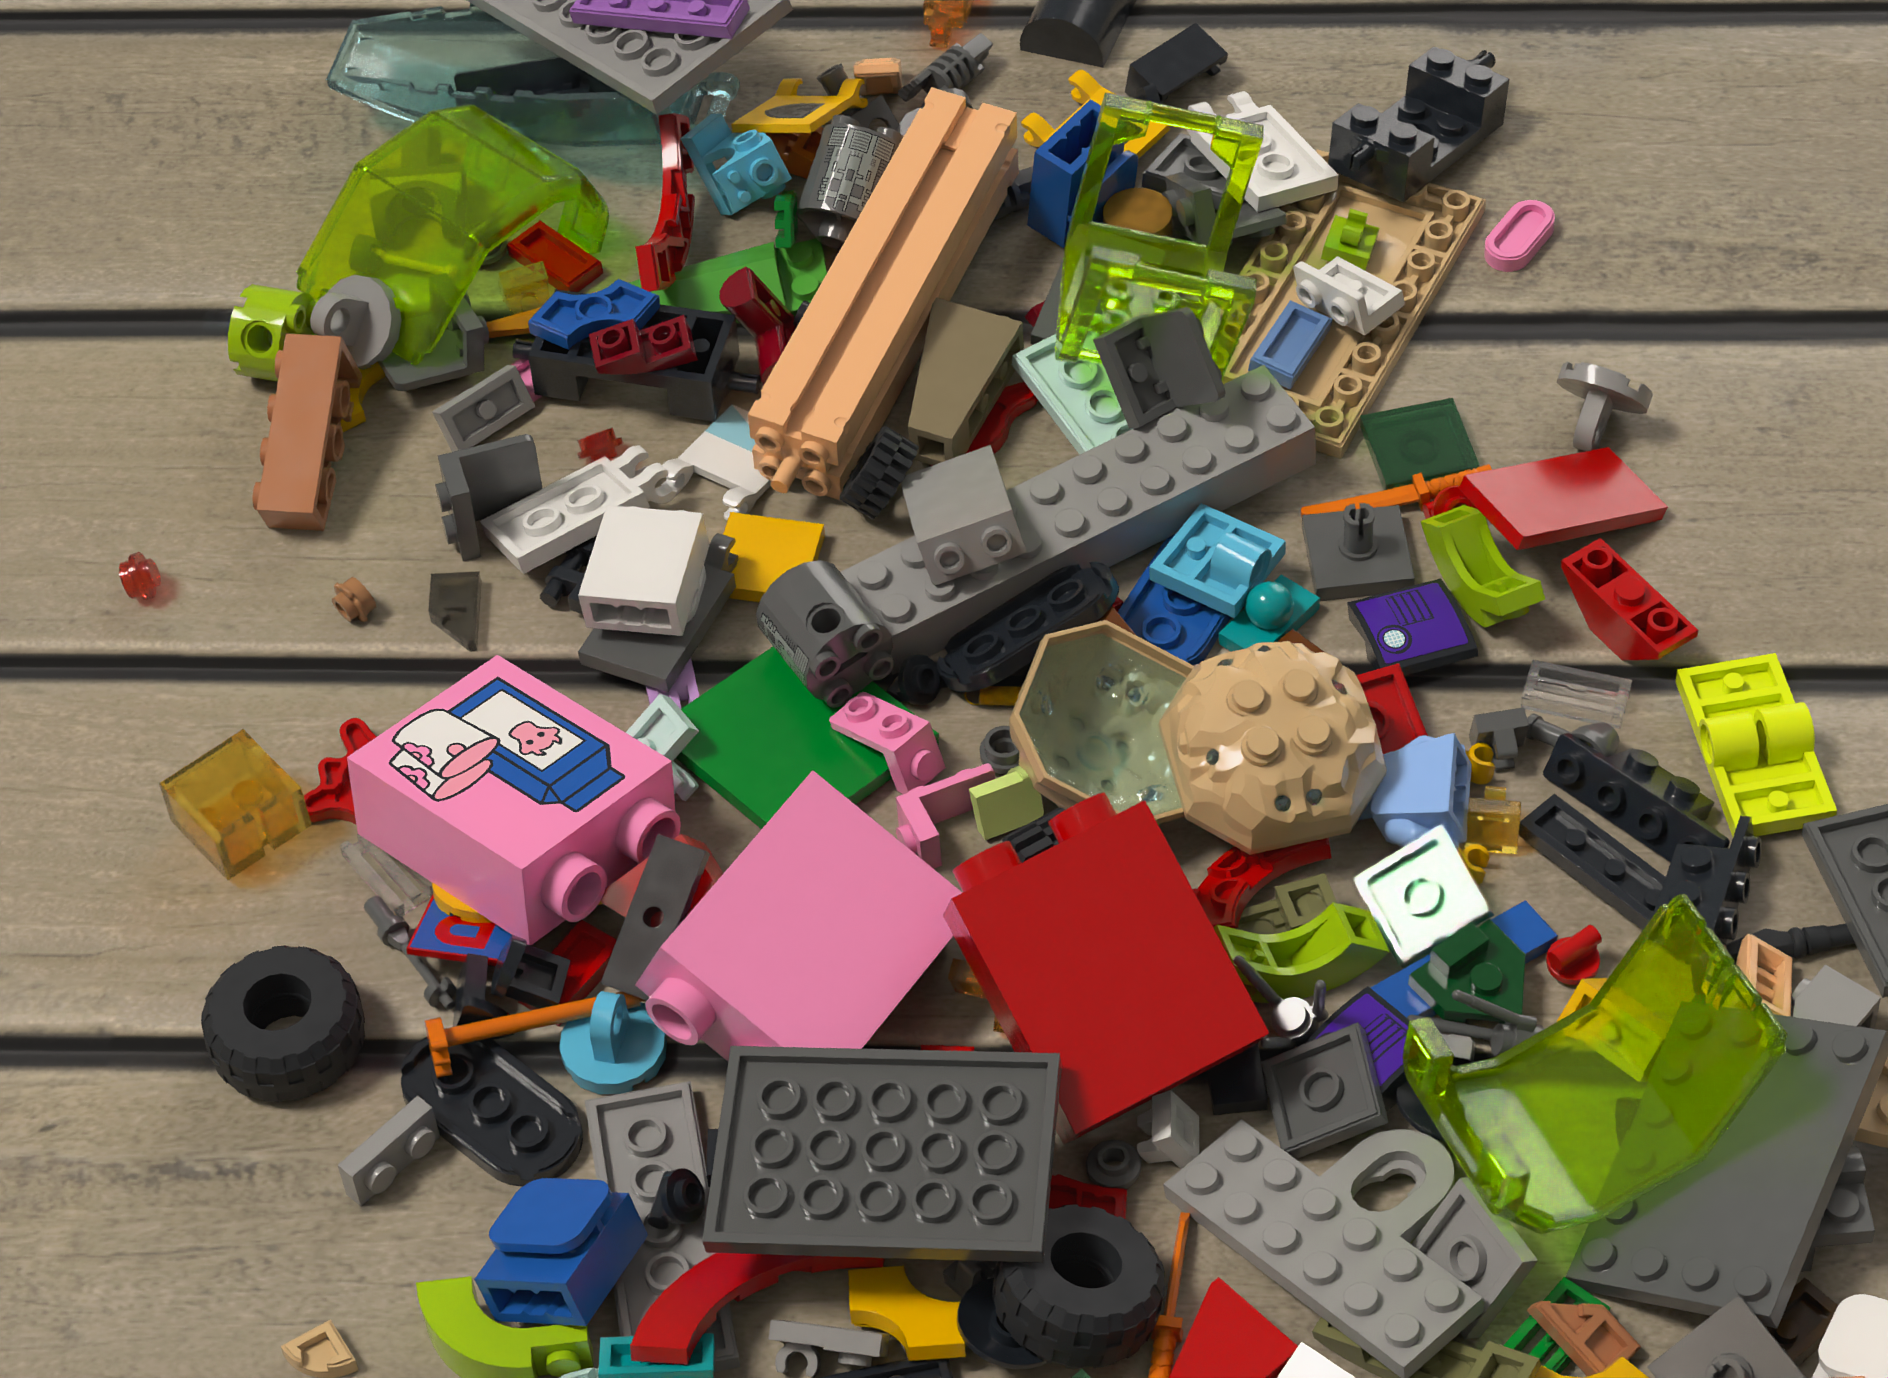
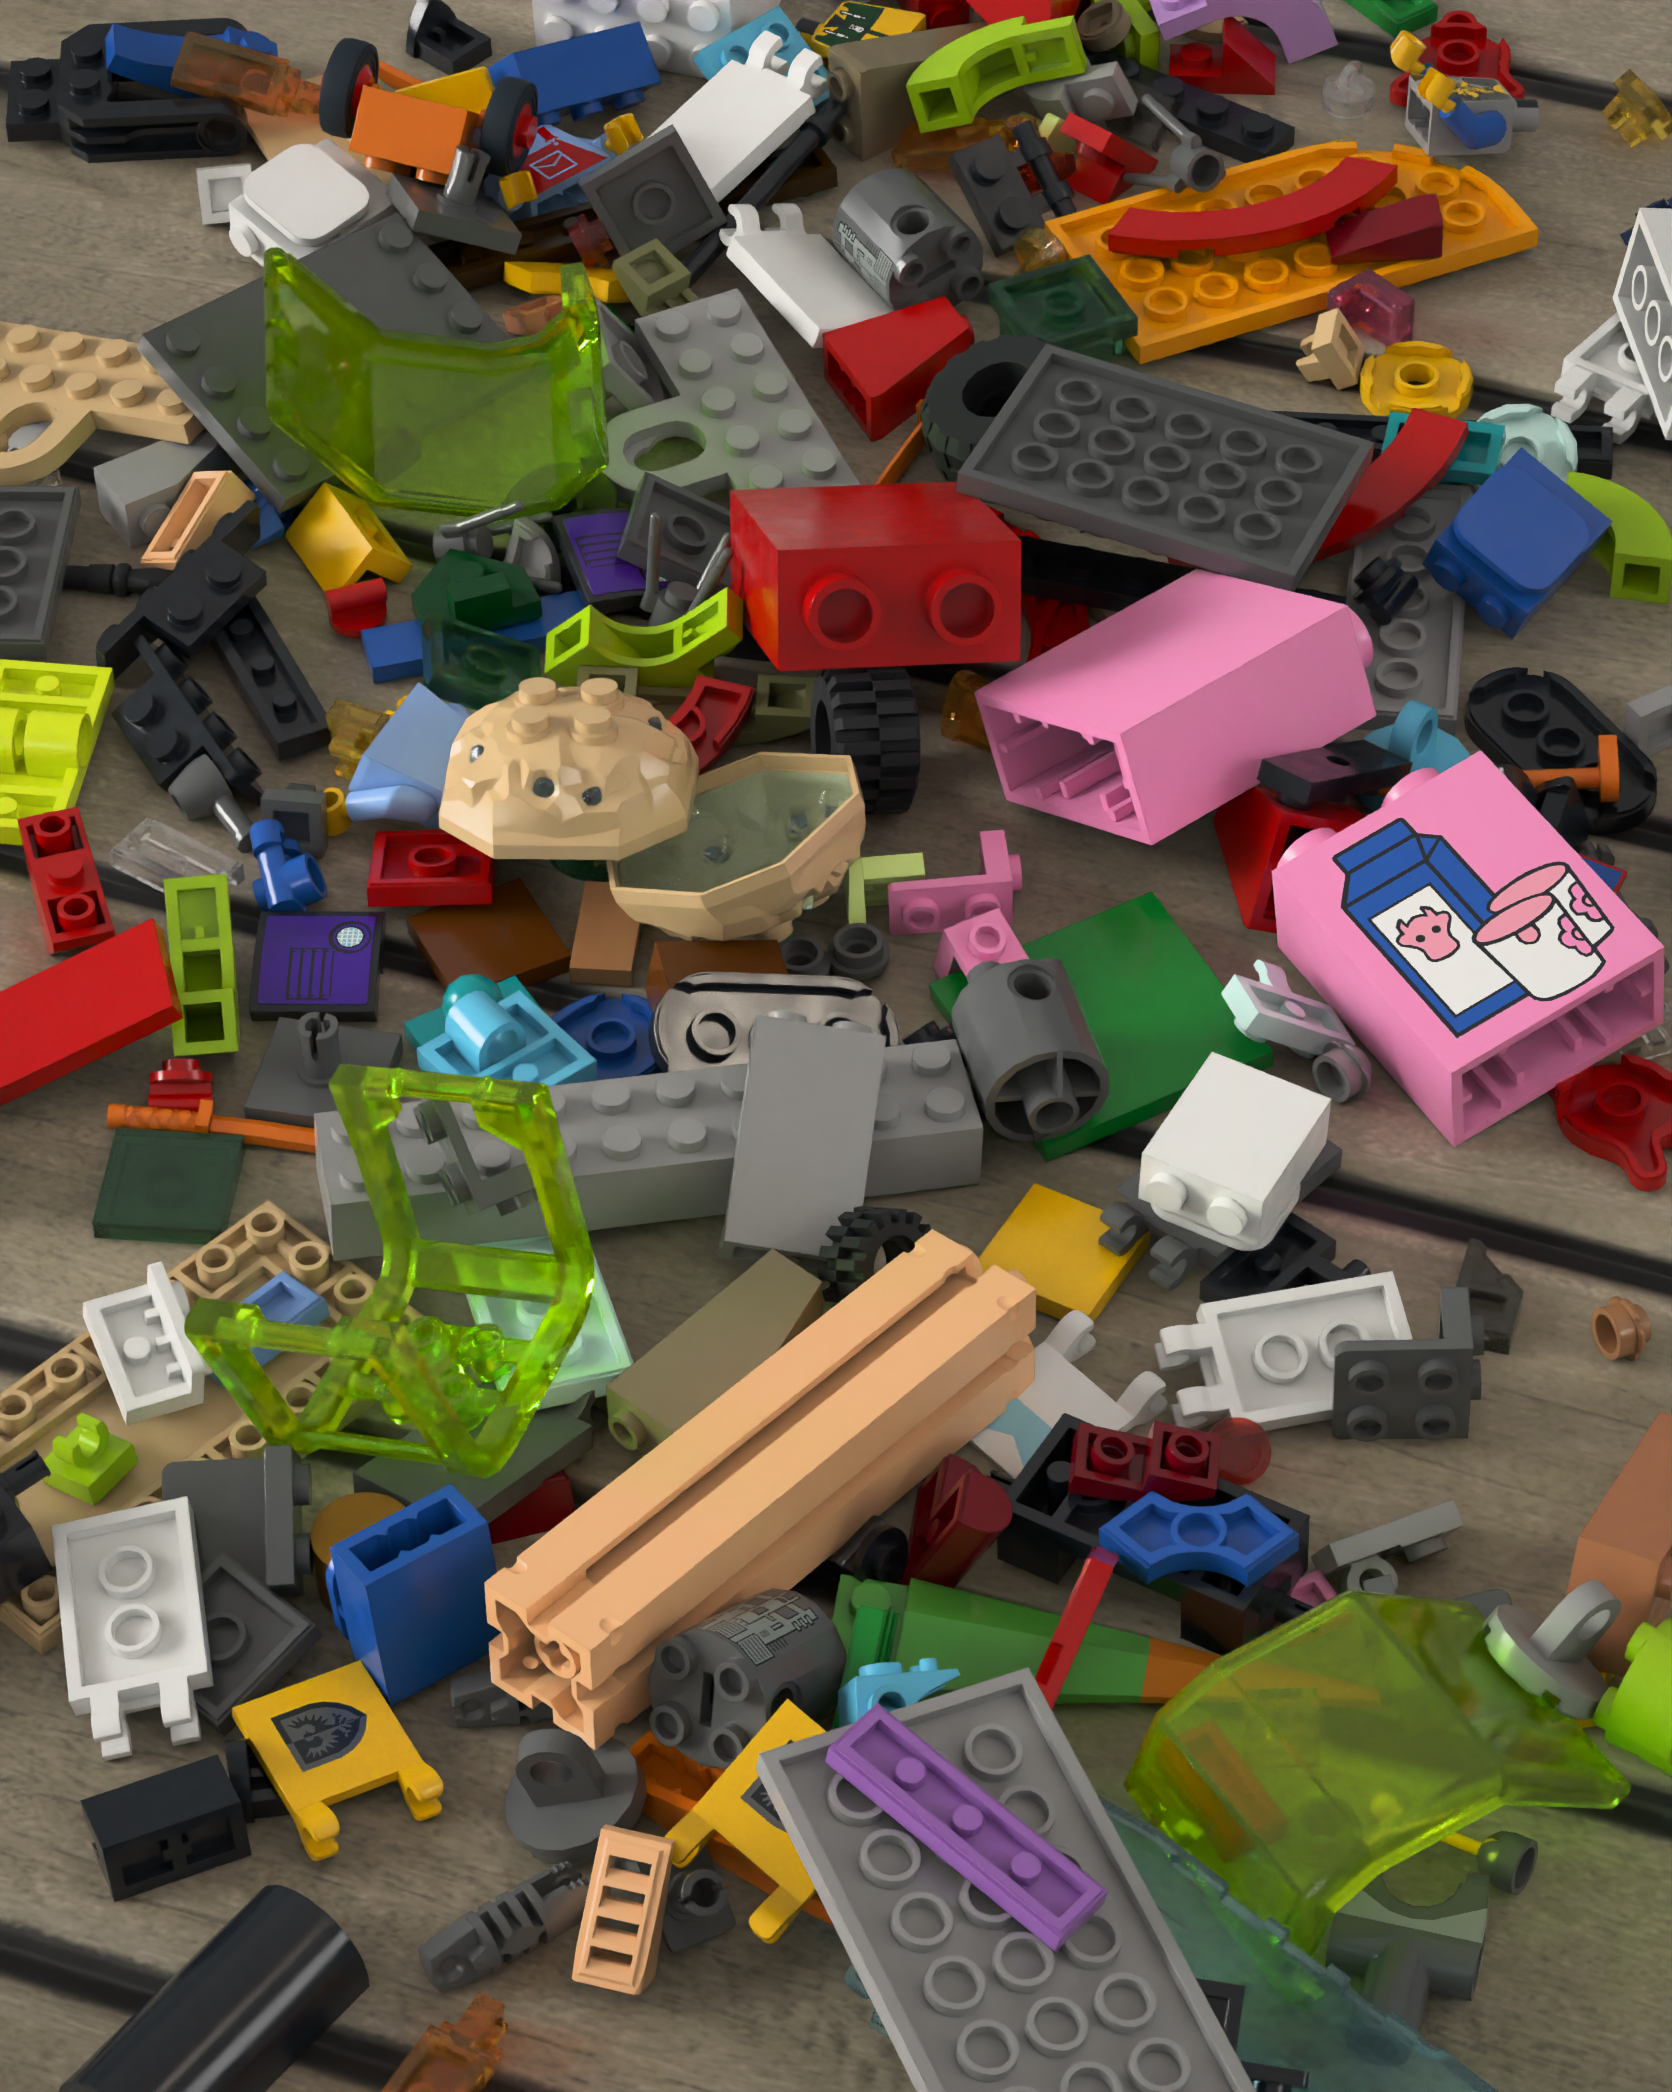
camera: 165 degrees left, 5 degrees down
(1476, 681) = (288, 877): none -> blue plate

